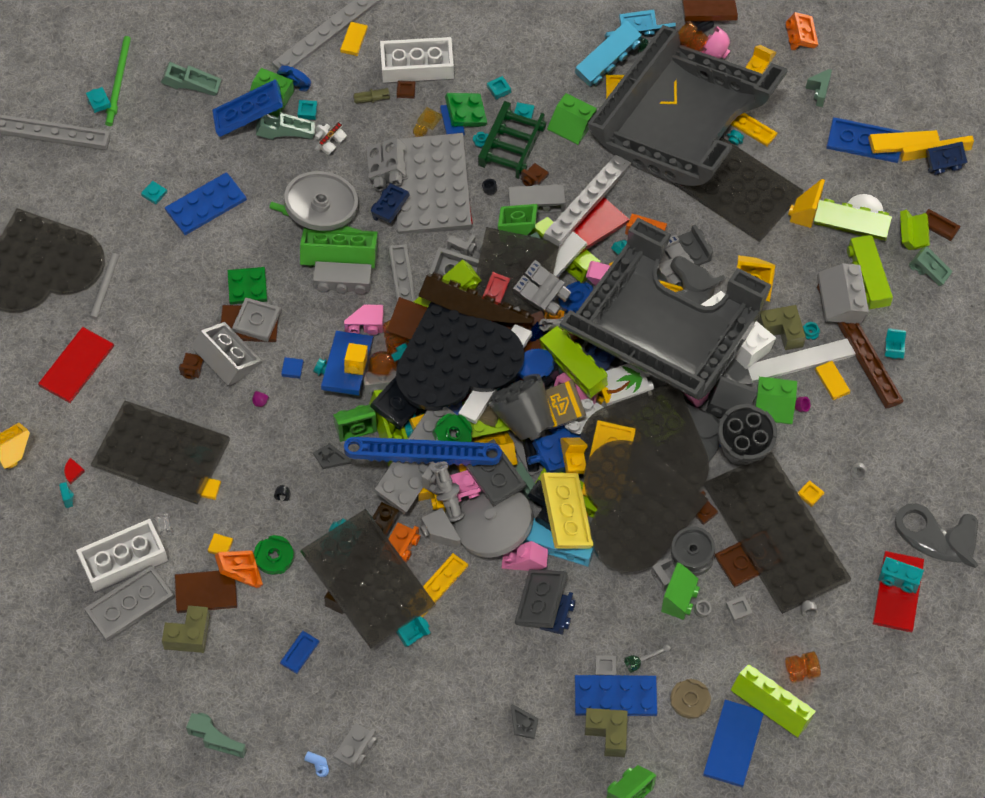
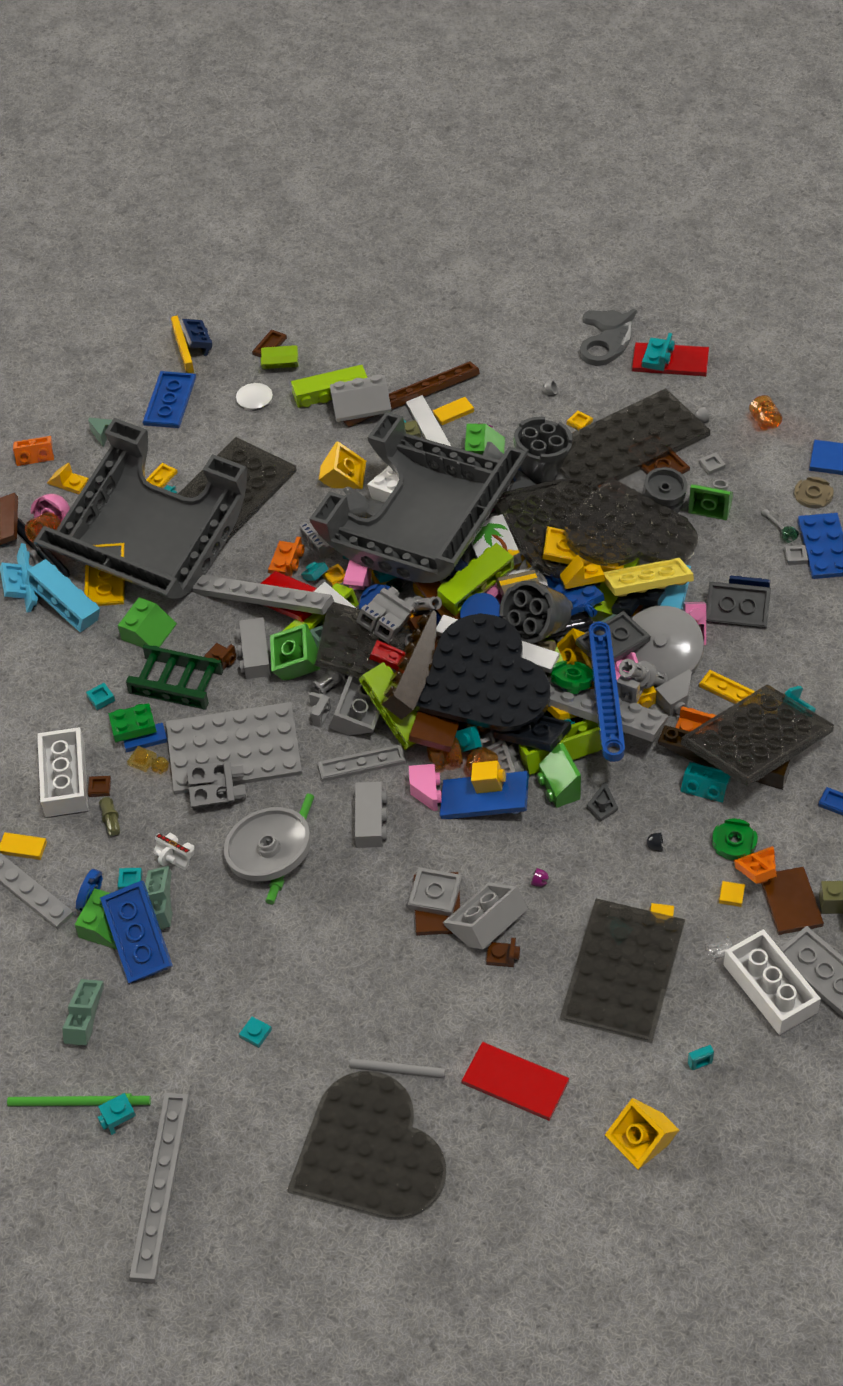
camera: 90 degrees left, 10 degrees down
(72, 471) = (663, 1060): red tile -> none
(205, 203) = (270, 972): blue plate -> none
(248, 284) = (385, 912): green plate -> none
(292, 367) = (492, 853): blue tile -> none
(320, 367) = (489, 822): teal plate -> none
(338, 246) = (331, 820): bright green slope -> none
(389, 203) = (268, 777): dark blue bracket -> none
(476, 139) = (172, 711): teal plate -> none
(489, 186) = (240, 688): black hinge -> none
(524, 110) = (131, 669): teal plate -> none
(662, 577) = (694, 515): light grey bracket -> none
(696, 246) = (301, 513): dark grey bracket -> none
(773, 700) = (805, 429): lime brick -> none
(806, 205) = (257, 426): yellow slope -> none
(852, 219) = (272, 397): brick -> none
(895, 343) = (411, 368): teal bracket -> none
(896, 141) = (175, 367): yellow tile -> none
(932, 265) = (317, 346): sand green plate -> none

